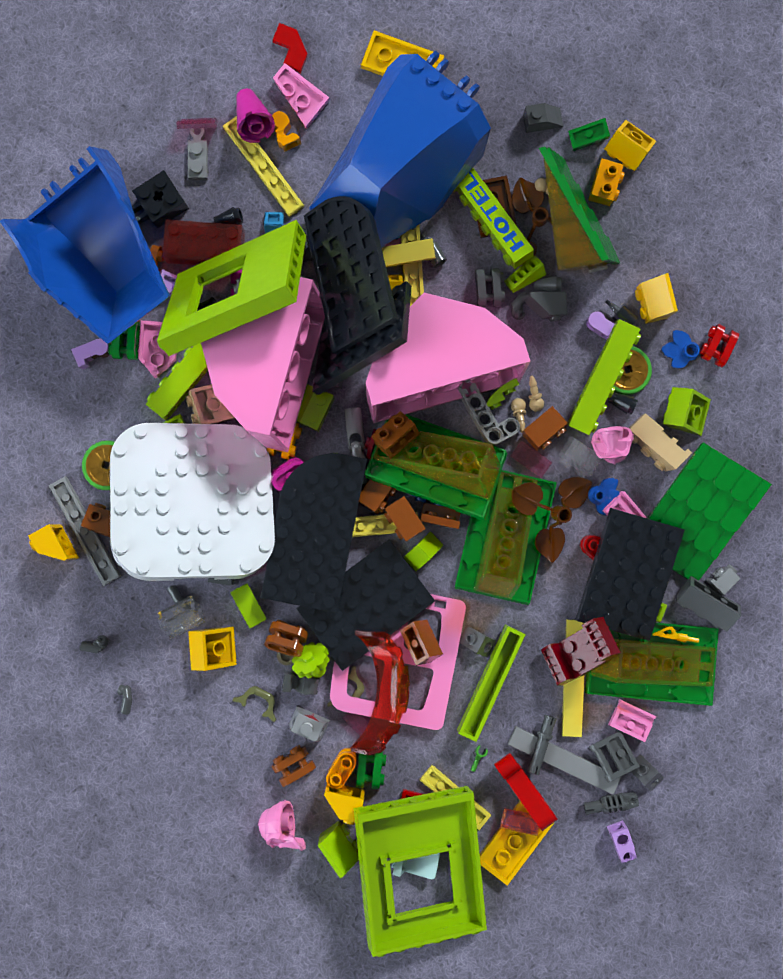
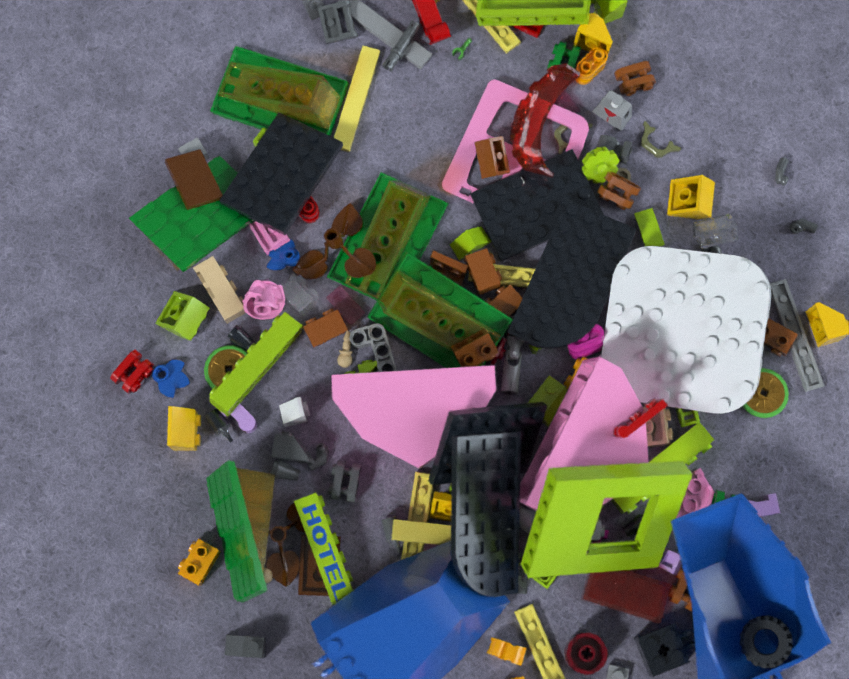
camera: 165 degrees left, 10 degrees down
(63, 207) = (750, 651): none -> black tyre
(217, 382) = (640, 418): none -> red plate
(220, 179) = (591, 663): none -> dark red brick
(230, 216) = (592, 615): black cone -> none
(273, 221) = (548, 601): dark azure slope -> none
(278, 827) = (659, 28): bright pink head -> none
(306, 167) = (507, 651): none -> light orange leg
(476, 641) = (440, 149): flat silver bracket -> none
(490, 683) = (435, 109): lime brick -> none
(526, 274) = (298, 481): lime slope -> none
(536, 402) = (326, 358): tan bar -> none
(553, 340) = (294, 412): none -> white slope
(581, 651) = (346, 114): plate -> none
(589, 134) = (203, 616): green plate -> none
(629, 145) = (163, 596): yellow slope -> none
(632, 720) = (312, 49): bright pink plate -> none
(676, 636) = (253, 113): yellow hand -> none
(708, 604) = (213, 133): dark grey brick -> none
(716, 546) = (193, 179): none -> reddish brown tile

